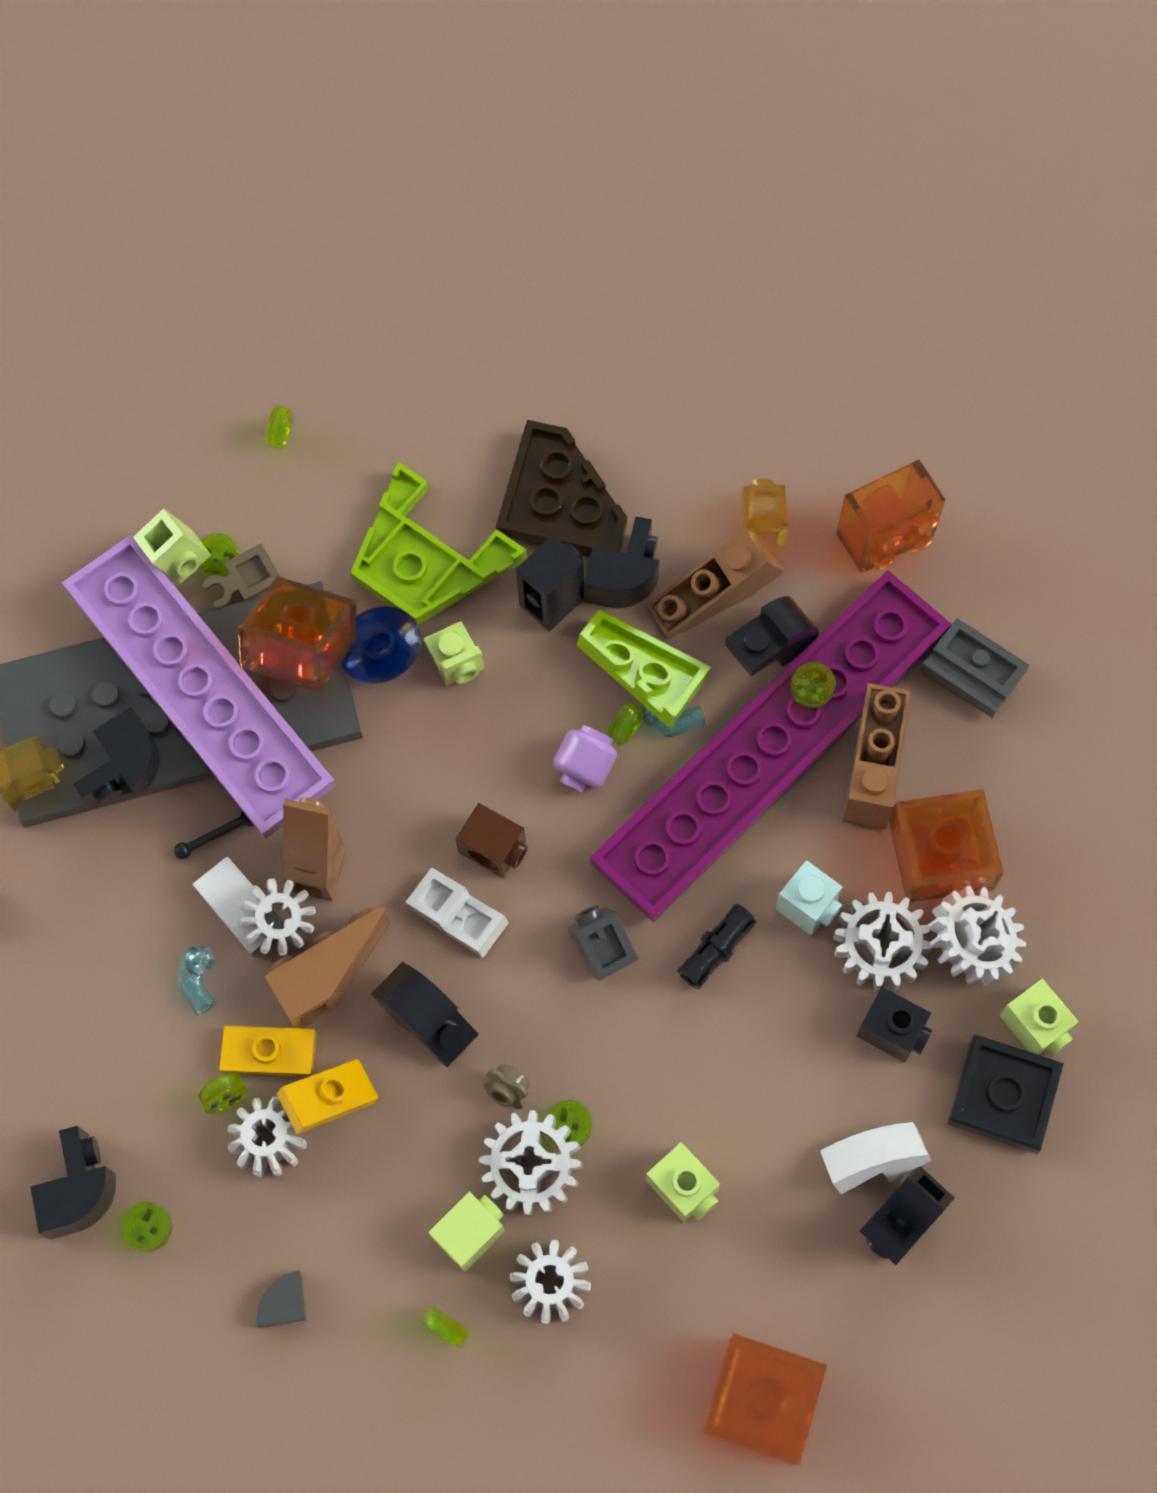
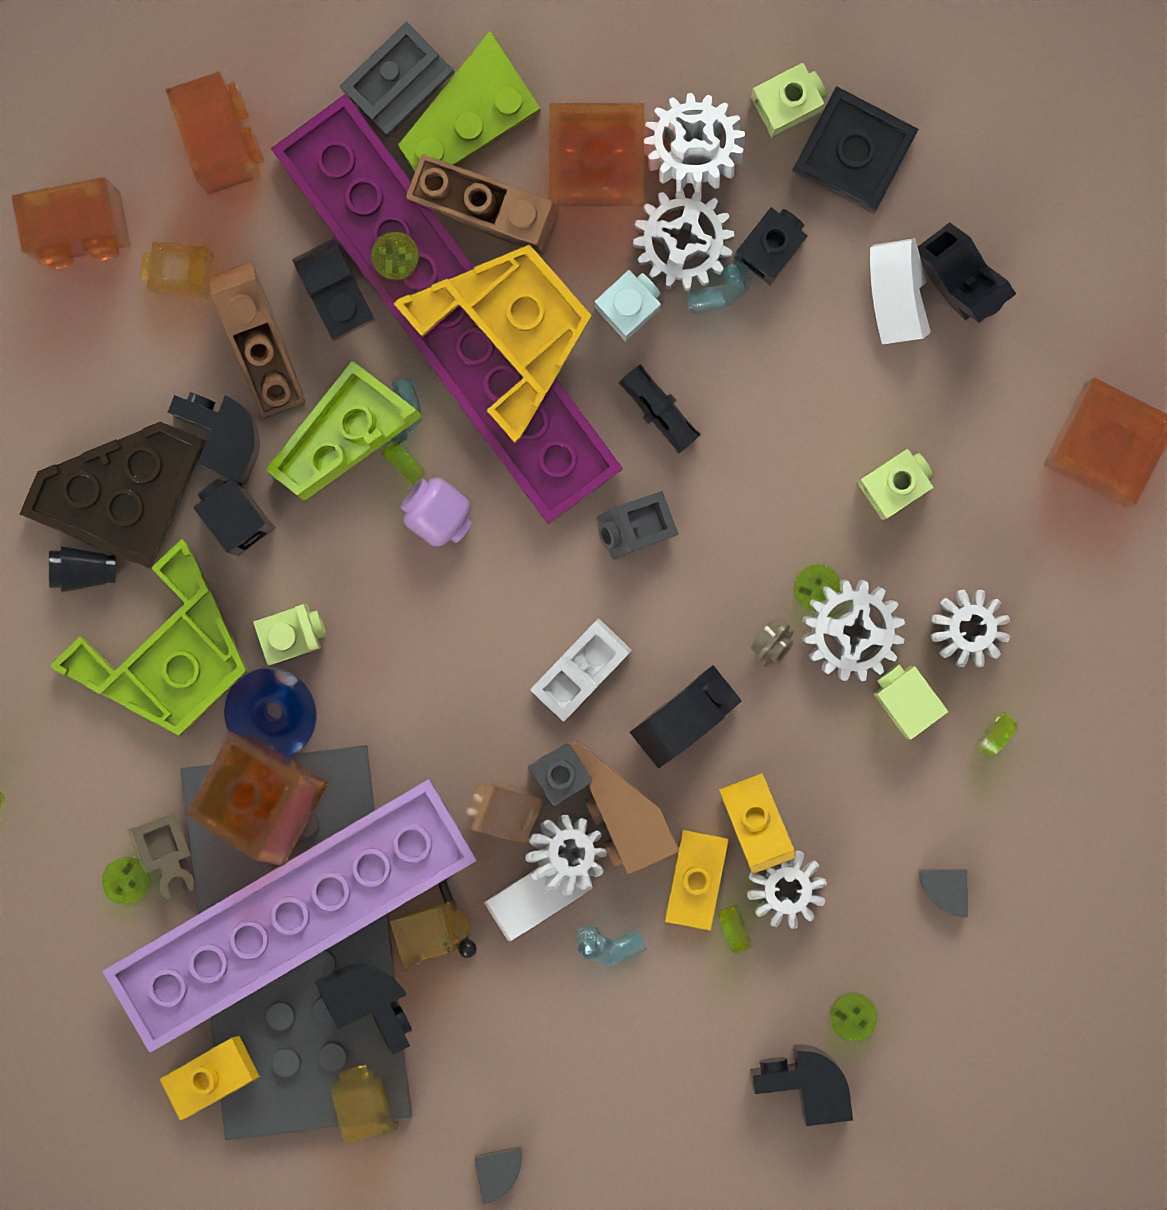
camera: 85 degrees left, 20 degrees up
(45, 643) = (209, 1078): none -> yellow plate
(172, 546) = (123, 927): yellowish green brick -> none
(191, 808) = (429, 932): none -> clear yellow window
(352, 899) = (560, 774): none -> dark grey bracket
(486, 472) = (80, 569): none -> black cone
(492, 840) = (513, 621): reddish brown brick -> none
(779, 802) = (522, 313): none -> yellow wing
(787, 417) = (71, 222): none -> clear orange brick
(836, 986) = (722, 295): none -> clear light blue arm
(963, 739) = (472, 109): none -> lime wing

